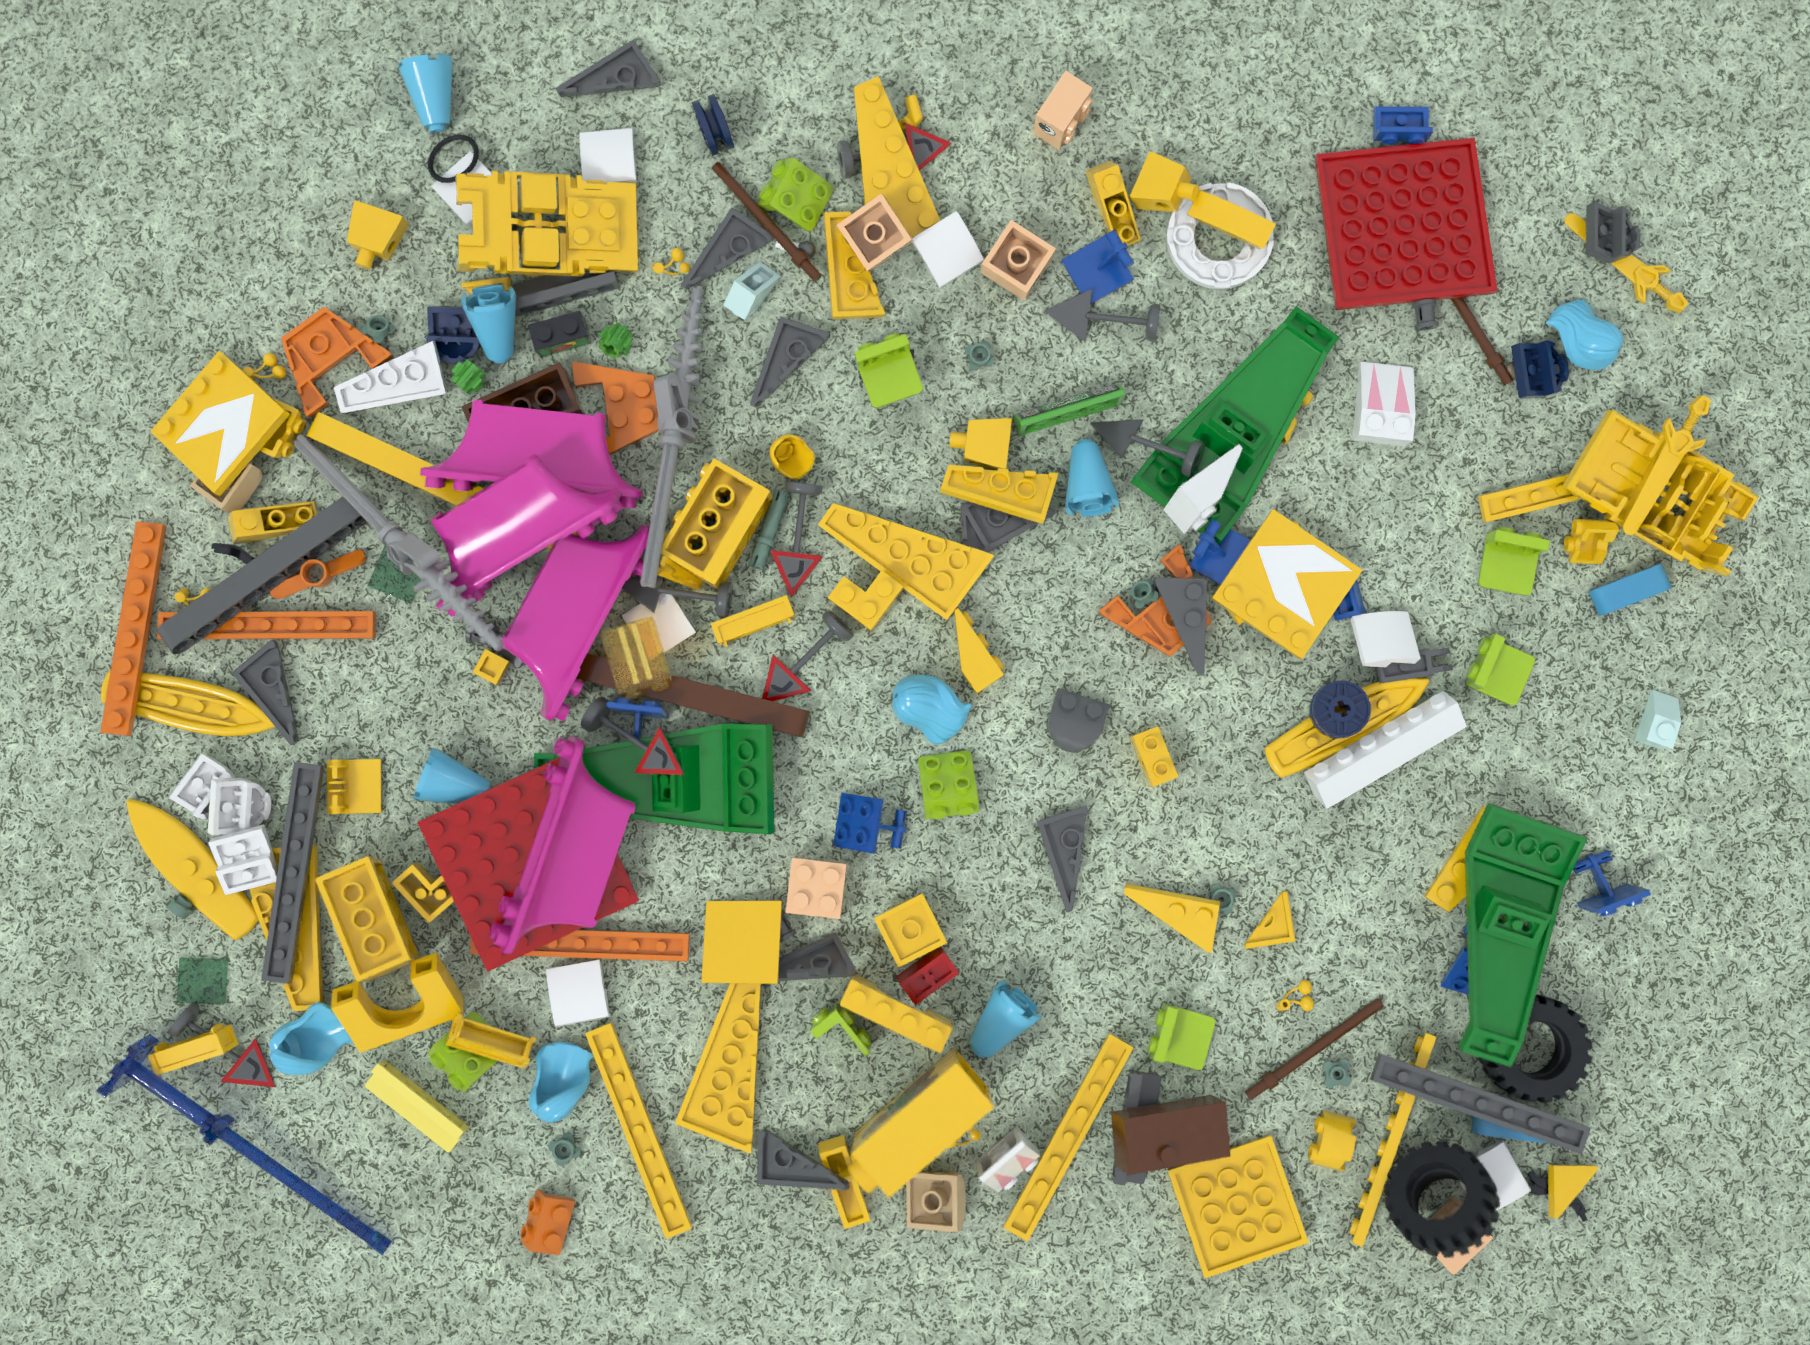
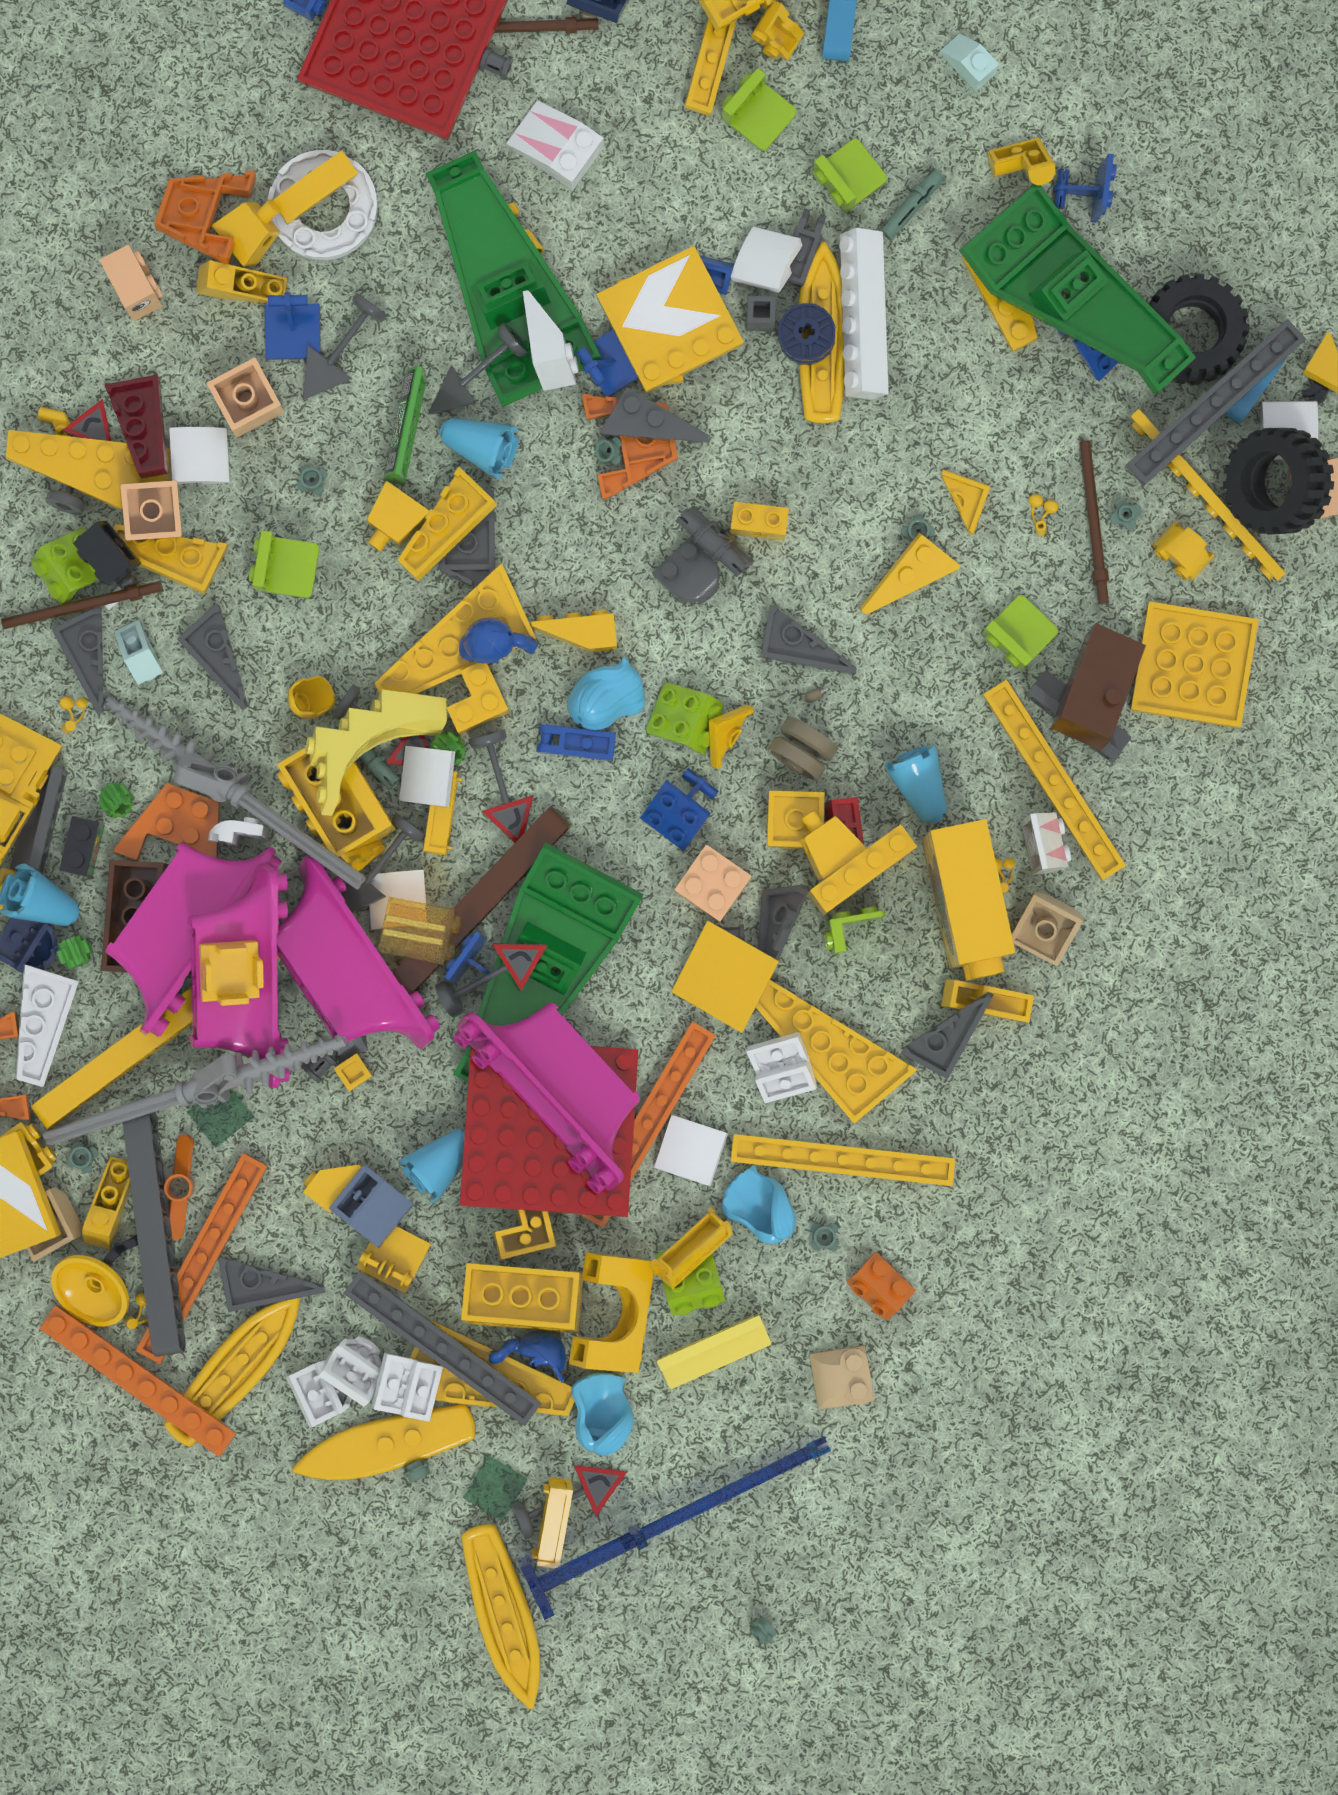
camera: 65 degrees left, 0 degrees up
(98, 1045) = (502, 1612): none -> yellow piece
(187, 546) = (90, 1290): none -> yellow dish
(196, 1280) = (762, 1631): none -> sand green plate
(293, 474) = (74, 1157): none -> sand green plate
(334, 961) = (540, 1345): none -> blue piece
(382, 745) = (371, 1206): none -> sand blue slope
(385, 700) = (328, 1184): none -> yellow slope
(451, 1230) = (841, 1377): none -> tan slope
(506, 516) = (230, 972): none -> yellow panel
(638, 453) = (232, 830): none -> white slope
(690, 1033) = (782, 1067): none -> white slope
(776, 592) = (427, 776): none -> white slope
(808, 533) = (390, 717): none -> light yellow arch
(810, 596) = (450, 742): none -> bright green gear
(819, 216) = (106, 553): none -> black brick
(876, 704) = (577, 742): none -> blue plate
(901, 973) = (828, 844): none -> yellow torso
(922, 583) = (492, 640): none -> blue piece
(952, 182) = (142, 423): none -> dark red wing
(954, 826) = (724, 733): none -> yellow tile
(973, 902) = (803, 746): none -> dark tan wheel
(1028, 885) = (814, 695): none -> dark tan piece
(1114, 727) = (714, 541): none -> dark grey pin
(1156, 126) = (191, 208): none -> orange wing
(1335, 660) = (761, 313): none -> dark grey brick
(1515, 741) = (920, 195): none -> sand green pin
(1604, 816) = (1025, 156): none -> yellow brick

